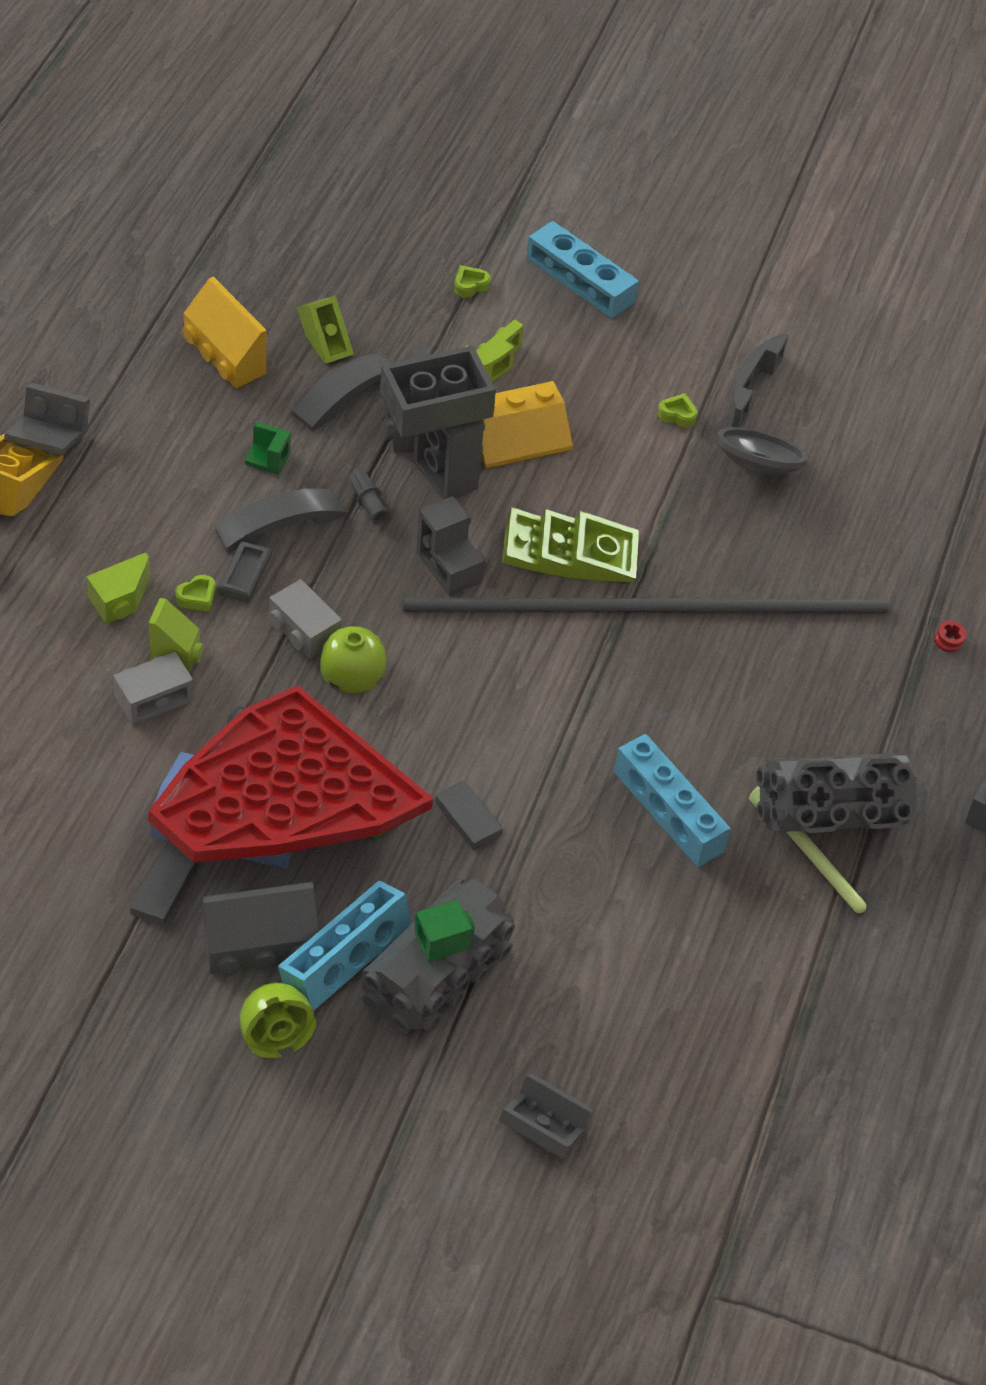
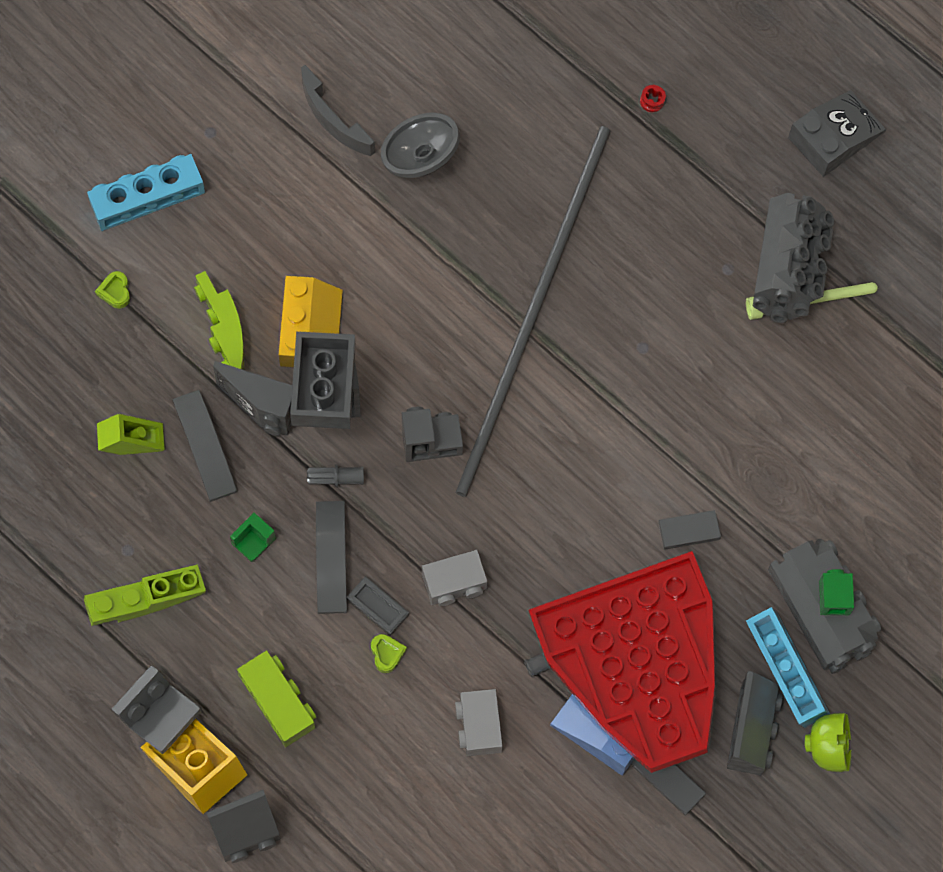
camera: 65 degrees left, 20 degrees up
(103, 514) = (277, 698): none -> lime brick
(119, 588) = (366, 713): lime slope -> none
(161, 385) = (145, 597): none -> lime slope
(174, 632) = (444, 689): lime slope -> none
(226, 334) = (112, 524): yellow slope -> none
(353, 659) = (508, 556): lime cylinder -> none
(570, 546) = (454, 339): lime slope -> none
(672, 800) = (738, 376): medium azure brick -> none
(678, 410) = (336, 188): lime tile -> none

